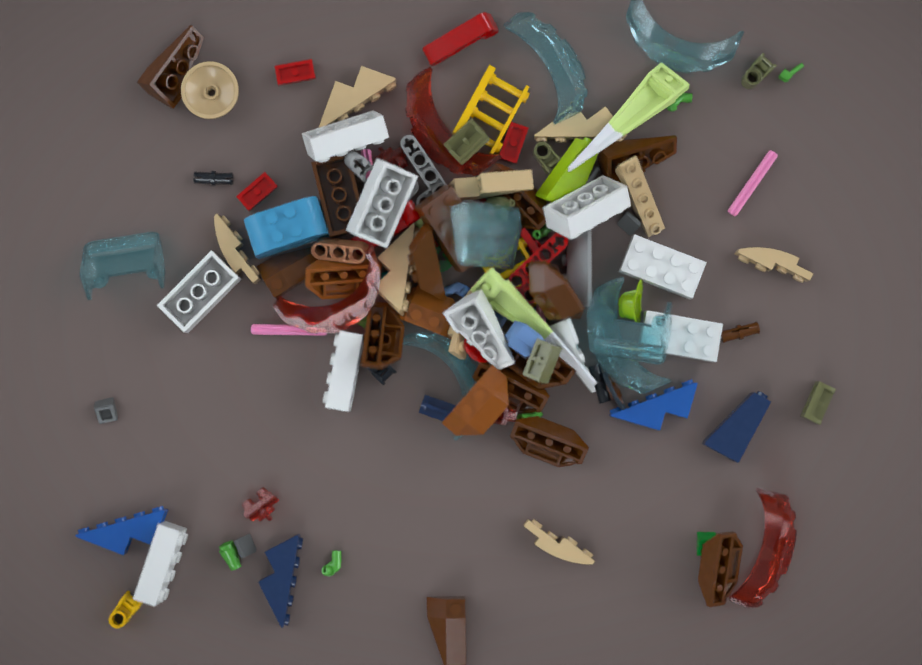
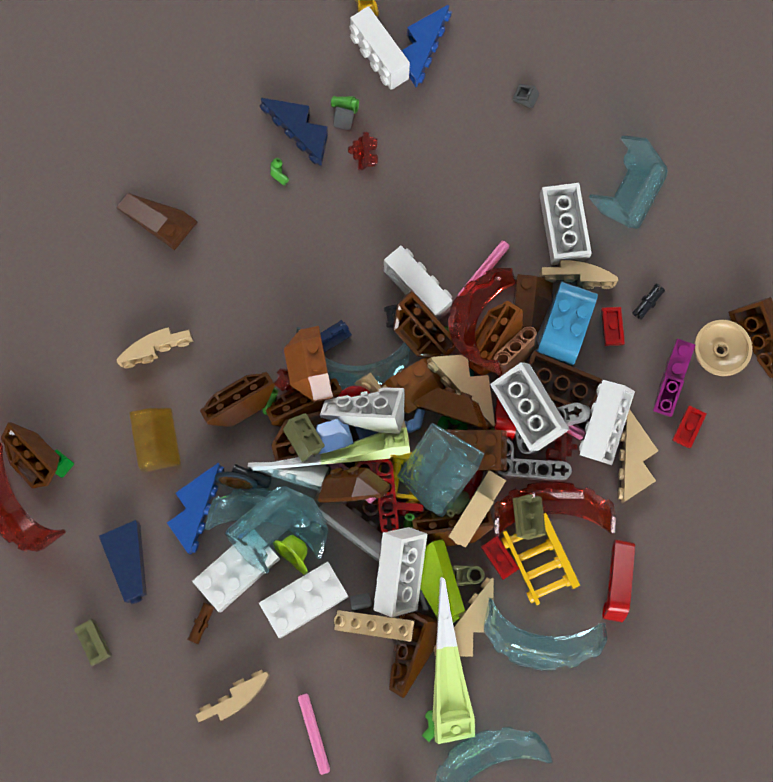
camera: 125 degrees right, 10 degrees down
(264, 113) = (673, 377): none -> magenta slope
(629, 482) = (154, 438): none -> clear yellow slope

